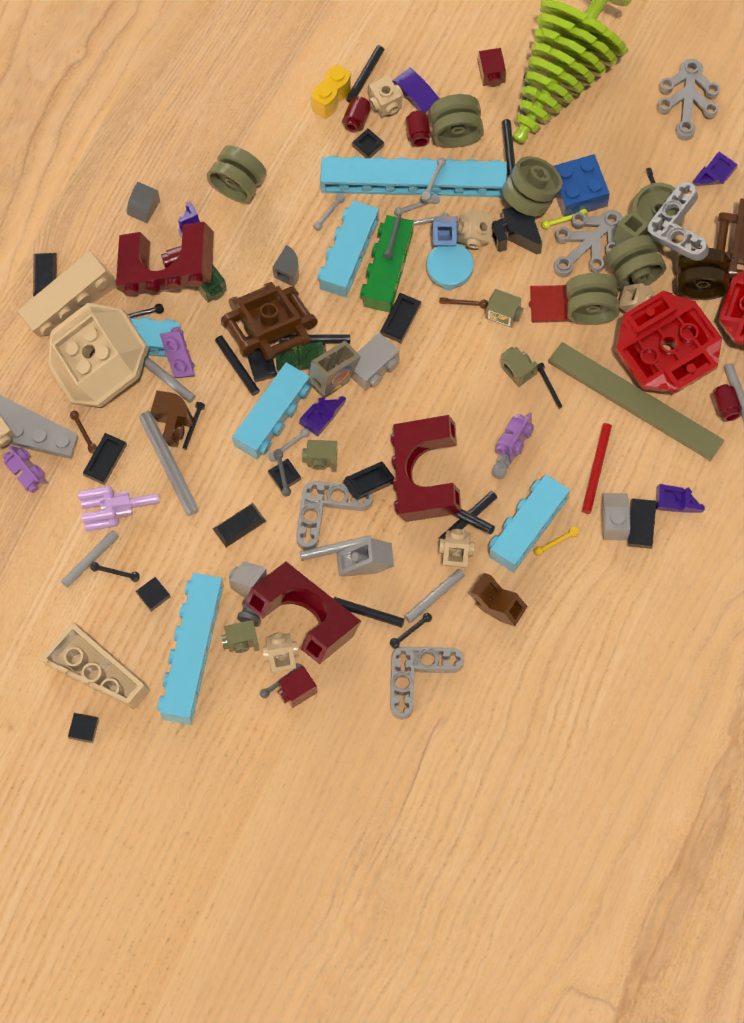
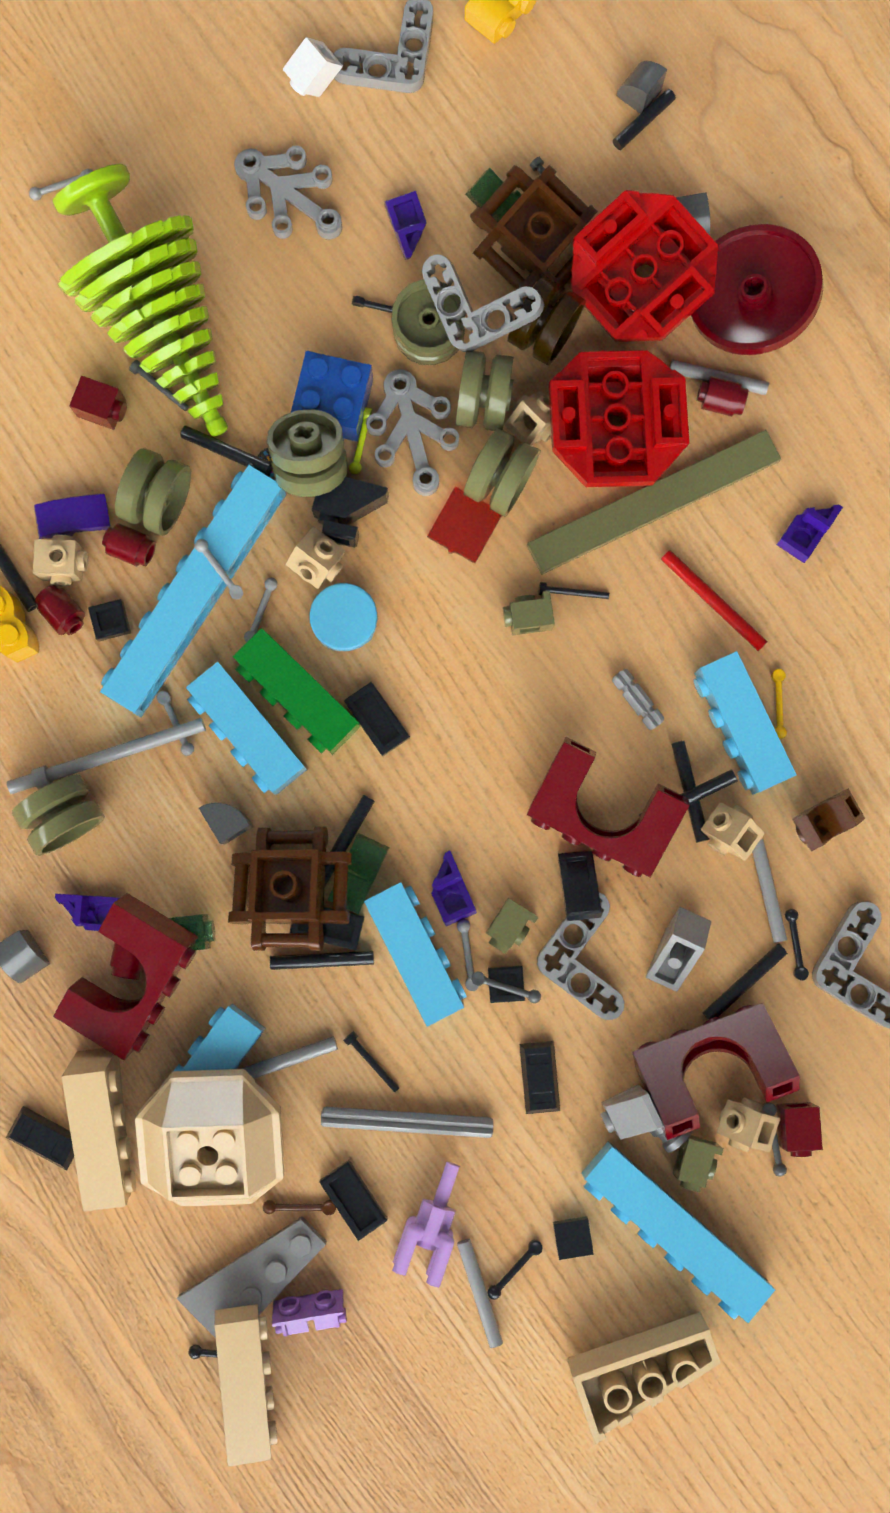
camera: 65 degrees left, 15 degrees up
(83, 728) = (701, 1422): black tile -> none
(158, 308) = (183, 1018): black hinge -> none
(173, 411) = (348, 1076): reddish brown brick -> none
(177, 353) = (272, 1032): medium lavender hinge -> none
(294, 190) = (44, 776): none -> light grey bar
(328, 373) = (413, 851): dark tan torso -> none
(330, 549) = (639, 974): light grey bar -> none
(376, 359) = (421, 788): light grey brick -> none
(388, 254) = (292, 686): dark grey piece -> none
(434, 200) = (228, 636): light grey hinge -> none
(445, 230) = (297, 595): medium blue brick -> none
(483, 303) = (417, 607): reddish brown hinge -> none
(504, 308) = (443, 585): olive brick -> none
(520, 429) = (632, 684): medium lavender hinge -> none
(616, 516) = (791, 614): light grey slope -> none
(630, 226) = (440, 370): olive brick -> none
(642, 523) = (815, 590): black tile -> none

